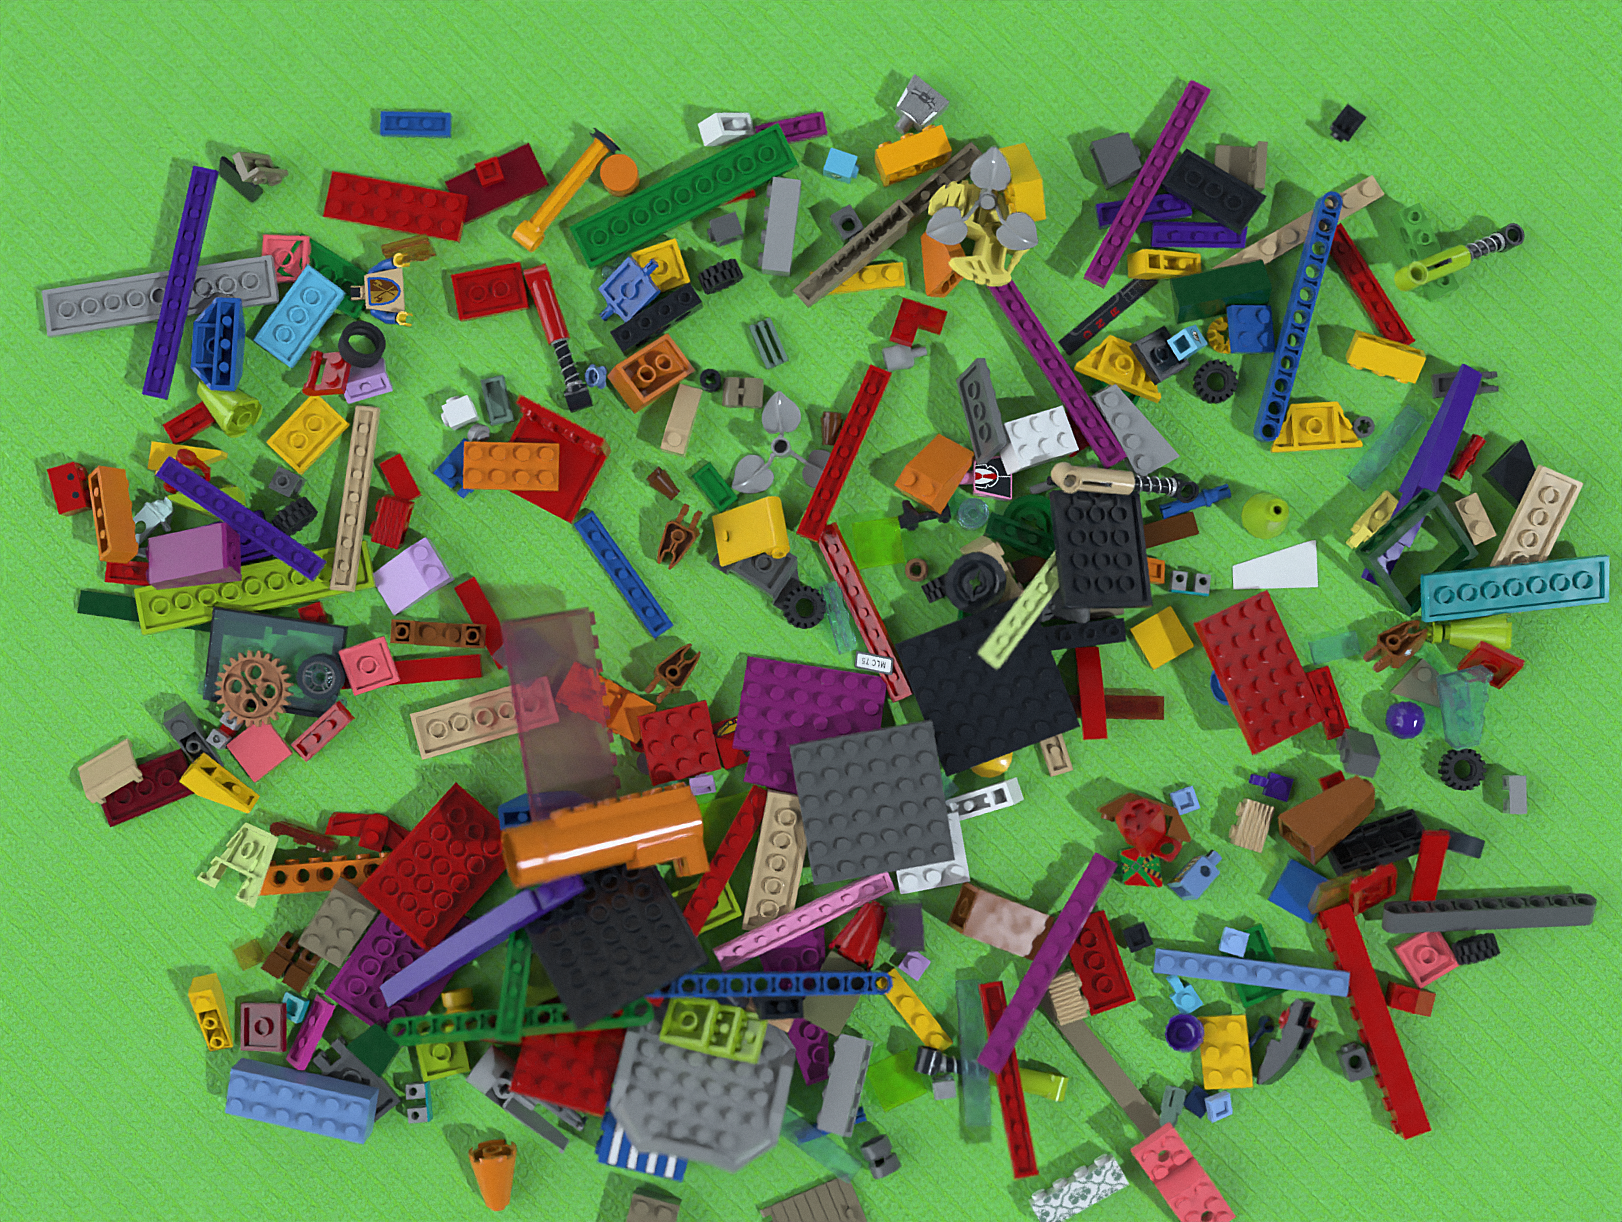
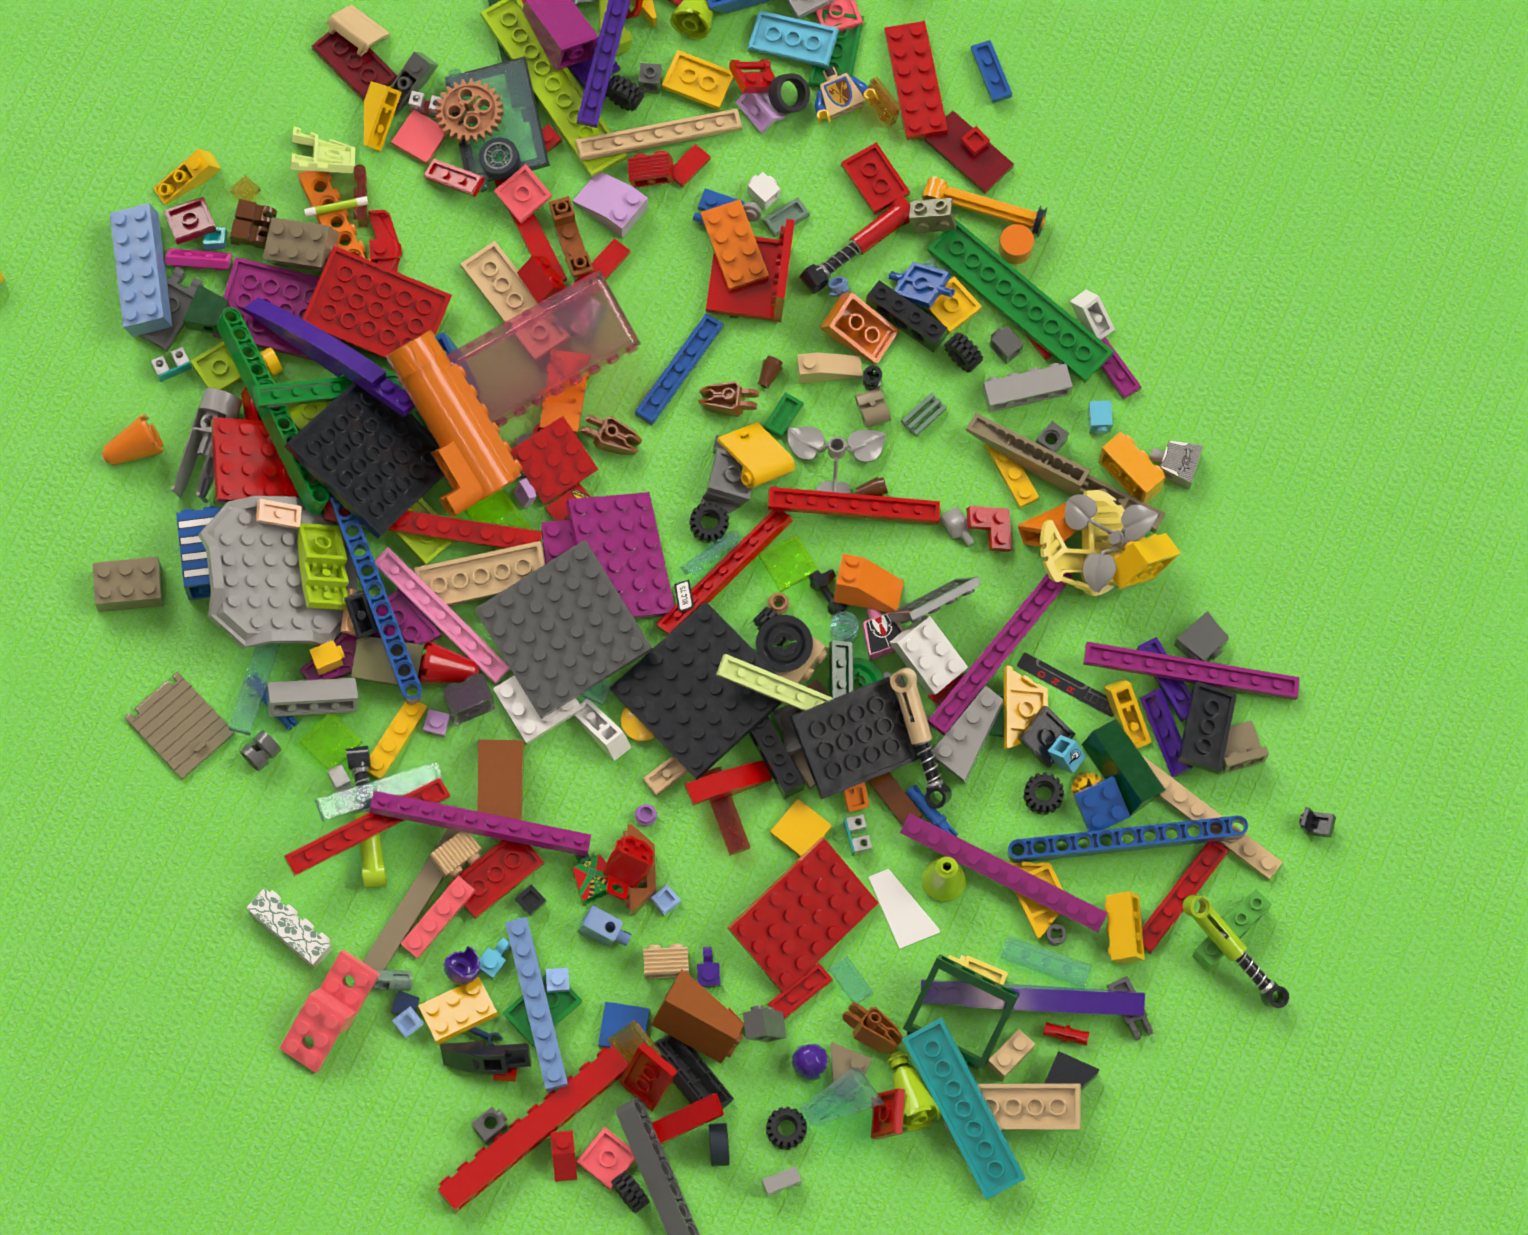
camera: 60 degrees right, 15 degrees down
(310, 869) = (336, 206): none -> lime bar
(474, 682) = (540, 278): none -> red brick
(557, 249) = (932, 215): none -> olive bracket
(644, 1058) = (278, 514): none -> light nougat plate
(808, 1055) = (327, 657): none -> yellow brick
(1090, 788) = (645, 815): none -> medium lavender plate
(1122, 1037) = (438, 917): none -> coral plate
(1287, 454) = (1004, 873): none -> magenta plate

